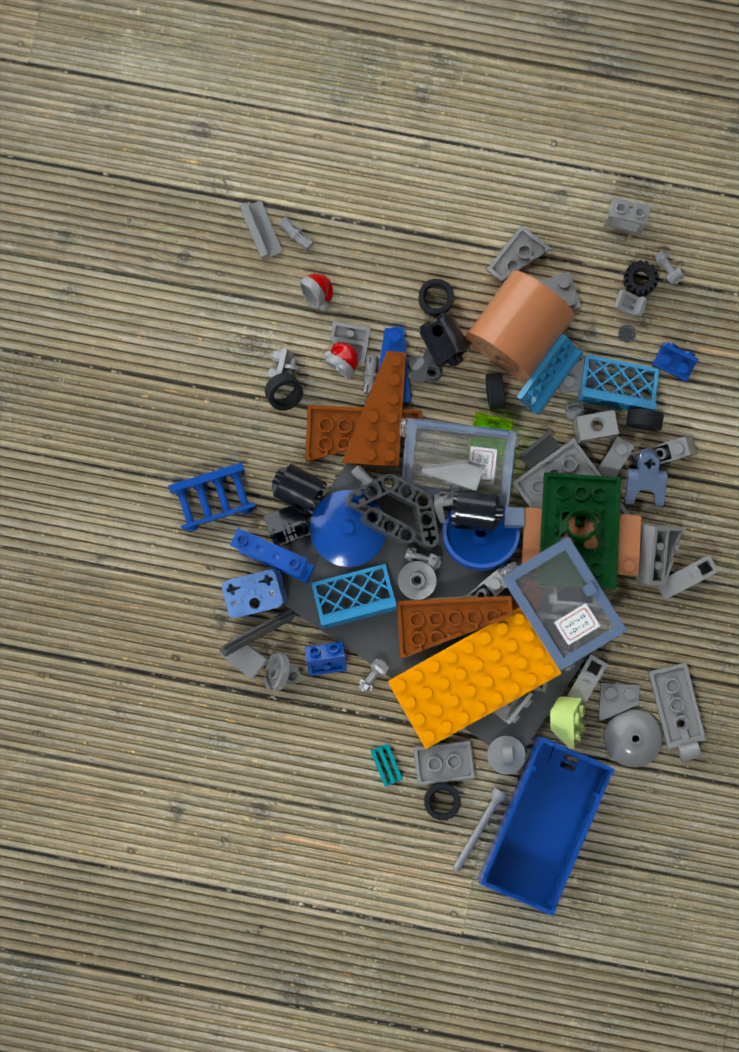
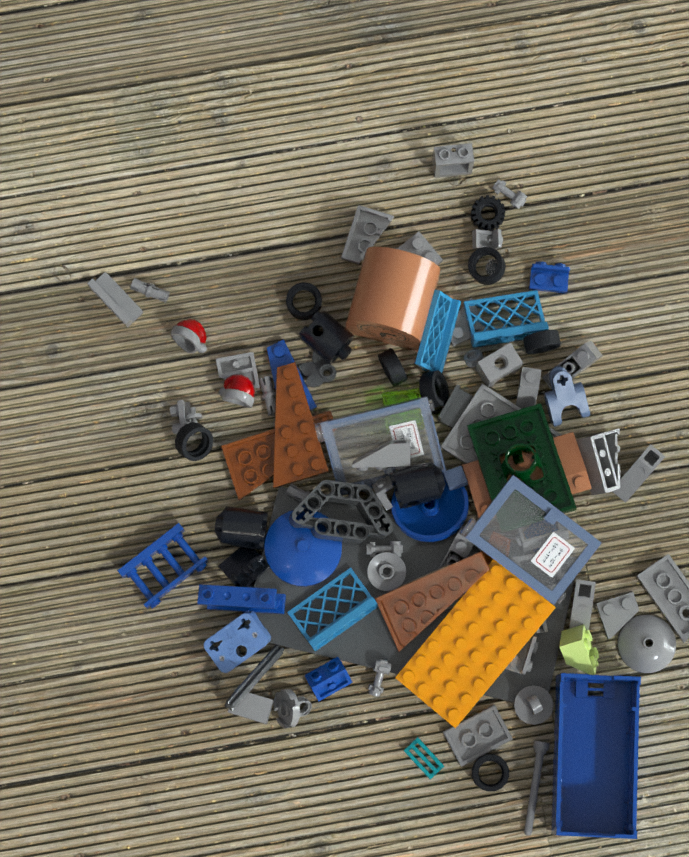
camera: 20 degrees left, 5 degrees down
(527, 424) = (435, 387): none -> black tyre
(616, 314) = (478, 254): none -> black tyre

